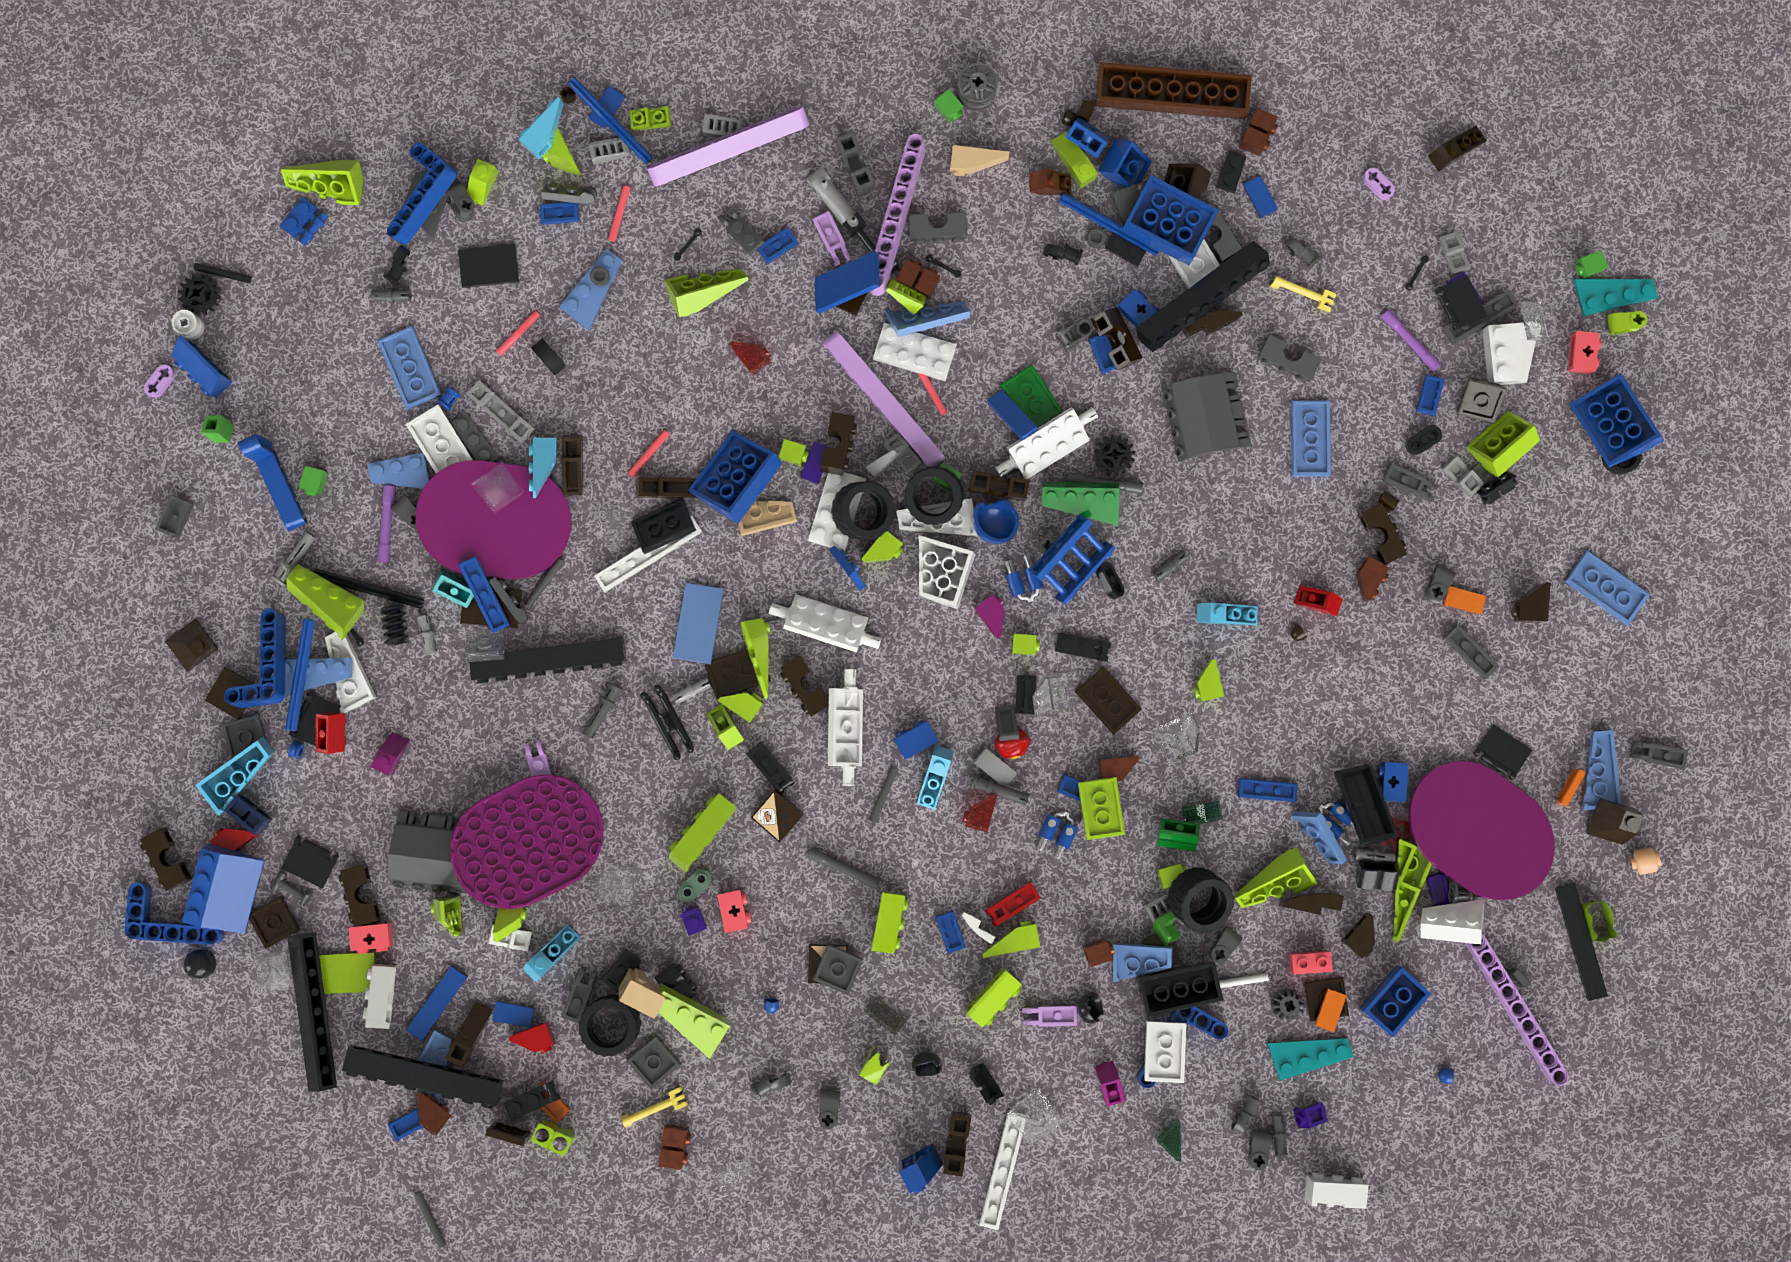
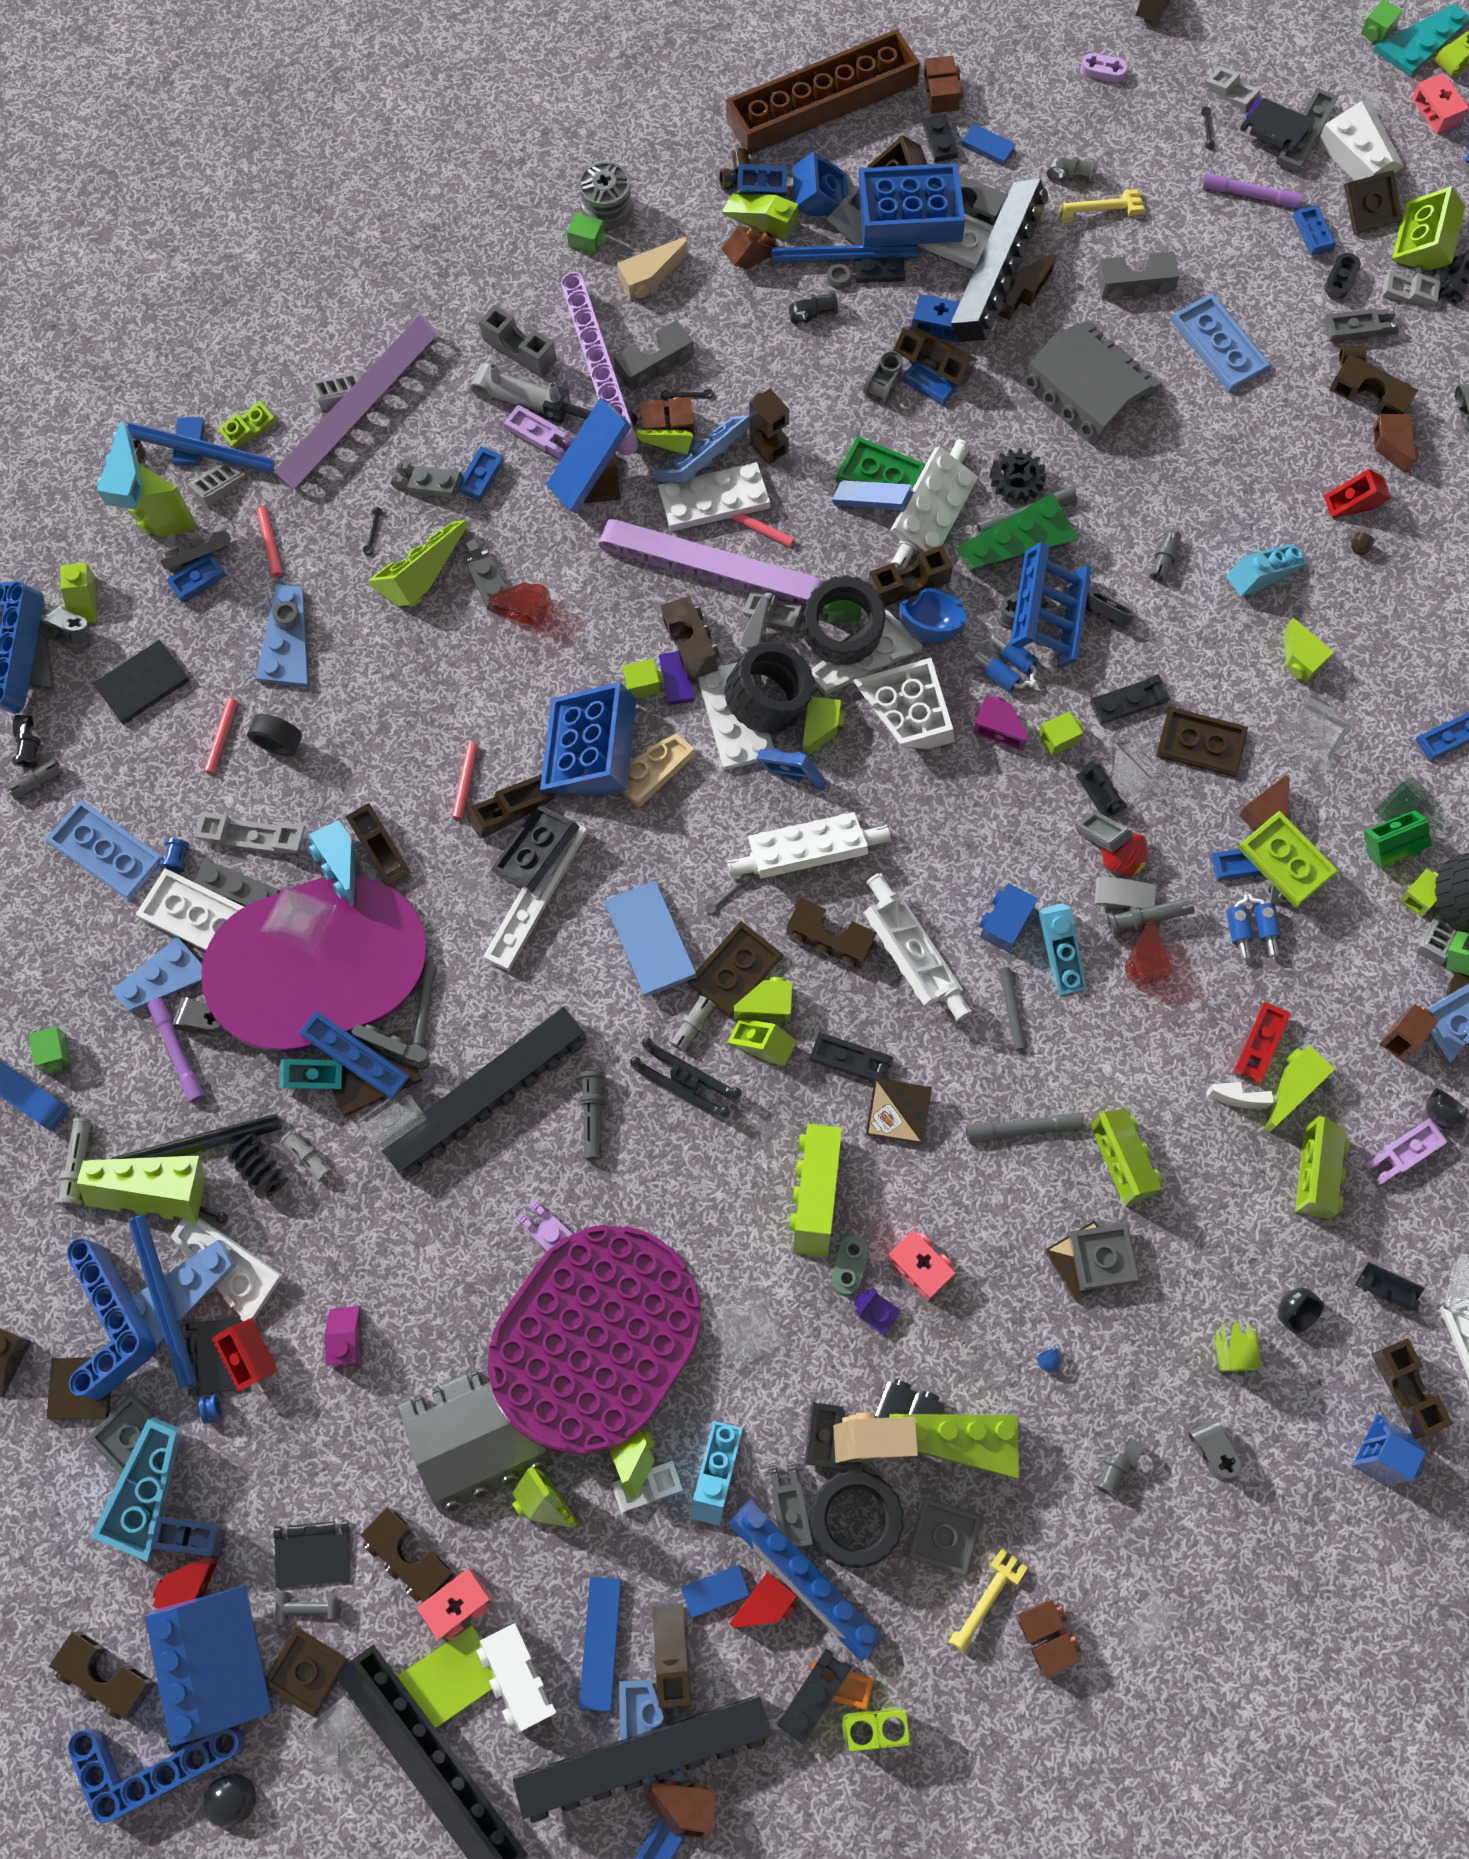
camera: 30 degrees left, 15 degrees down
(508, 1133) = (812, 1764): dark brown tile -> none
(562, 1039) = (805, 1580): none -> blue plate
(740, 319) = (484, 572): none -> dark grey hinge
(756, 639) = (738, 915): lime wedge -> none
(885, 1016) = (1203, 1282): clear smoke tile -> none
(950, 931) = (1210, 1124): blue plate -> none
(973, 330) = (767, 419): none -> dark brown arch

